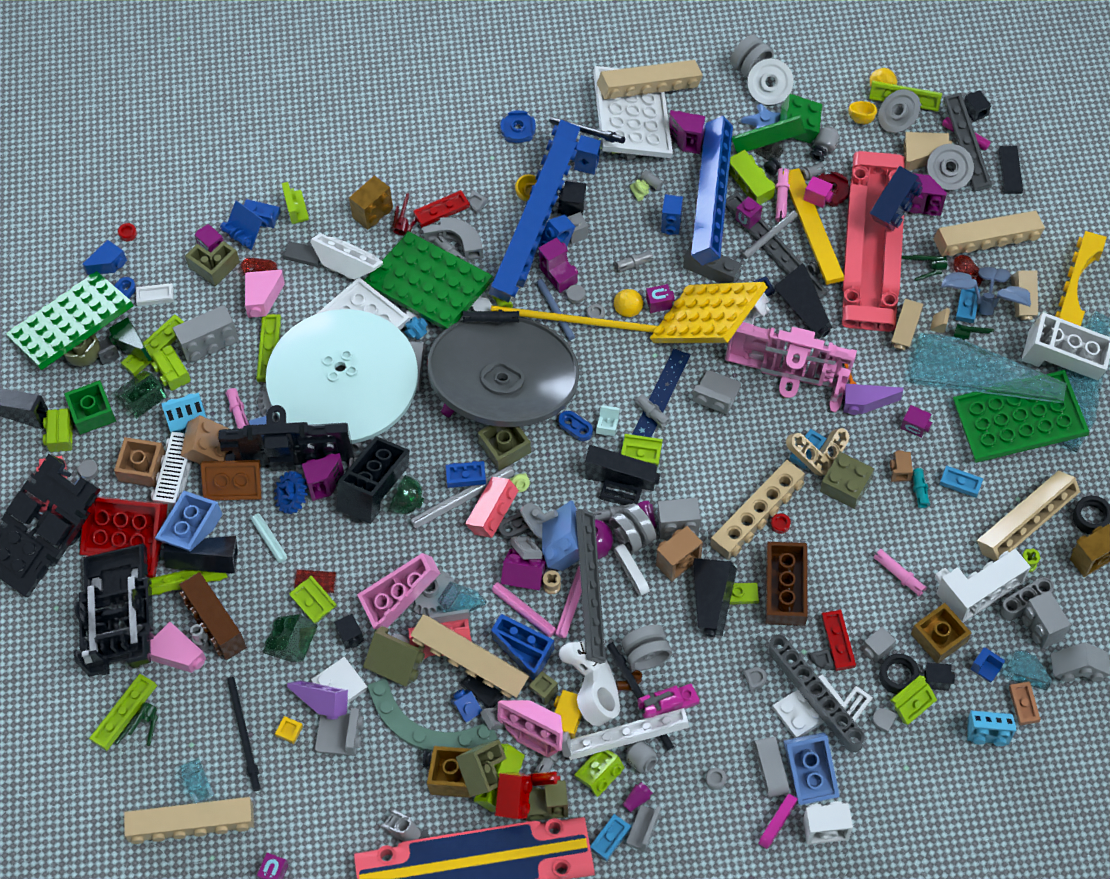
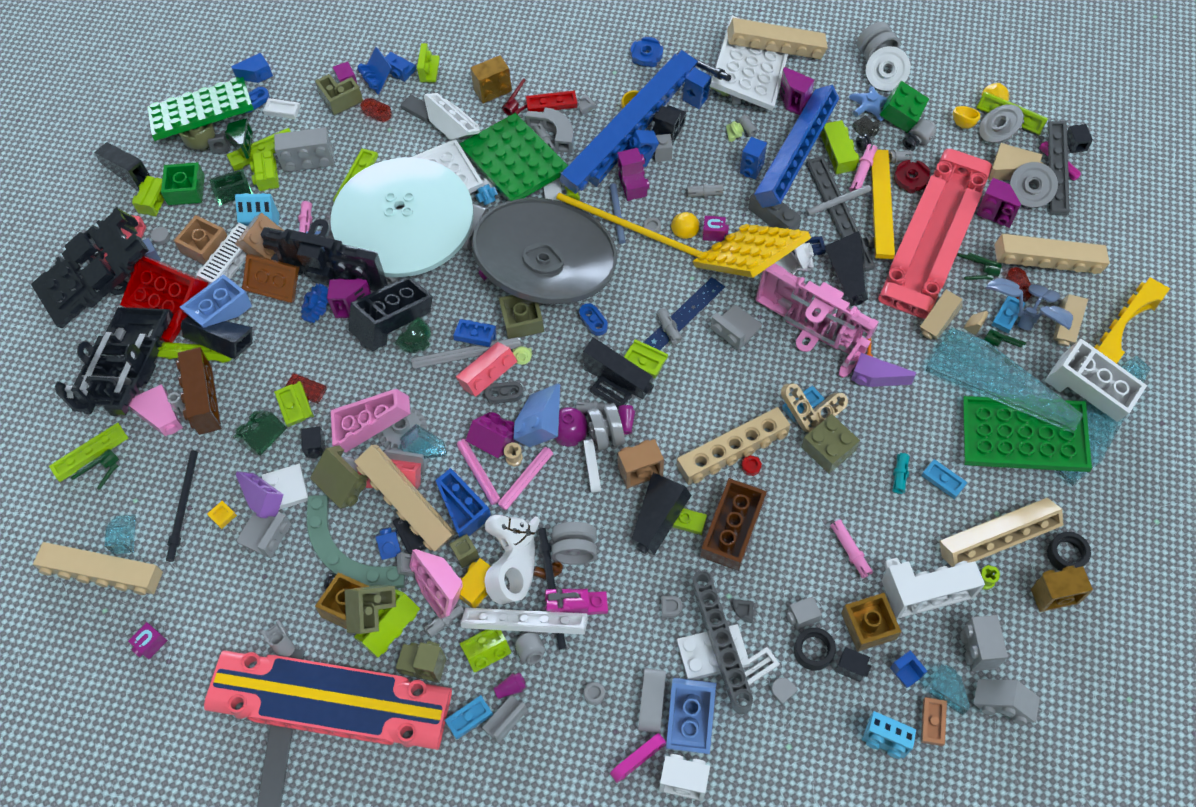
camera: 20 degrees right, 0 degrees up
(127, 232) = (283, 53): red tile -> none
(262, 291) = (368, 128): bright pink slope -> none
(269, 538) = (282, 338): light aqua axle -> none
(491, 316) = (553, 201): black pin -> none
(513, 795) = (387, 644): red slope -> none
(526, 547) = (501, 415): light grey tile -> none
(535, 517) = (520, 389): light grey shield -> none
(544, 778) = (418, 637): red axle -> none
(566, 744) = (460, 611): light grey tile -> none
(575, 294) = (640, 205): light grey tile -> none
(590, 587) = (541, 469): dark grey tile -> none
(608, 421) = (624, 323): light aqua bracket -> none
(677, 515) = (653, 425): light grey brick -> none
(748, 213) = (825, 175): magenta brick -> none
(769, 134) = (870, 111): green tile -> none
(818, 192) = (897, 173): dark pink brick -> none
(838, 640) = (765, 596): red plate -> none
(896, 198) = (969, 195): dark blue brick -> none
(901, 466) = (888, 447): medium nougat brick -> none
(913, 700) = (819, 680): lime plate -> none
(916, 421) = (919, 408): magenta brick -> none
(1010, 169) = (1093, 204): black tile -> none
(1018, 603) = (961, 616): light grey beam -> none

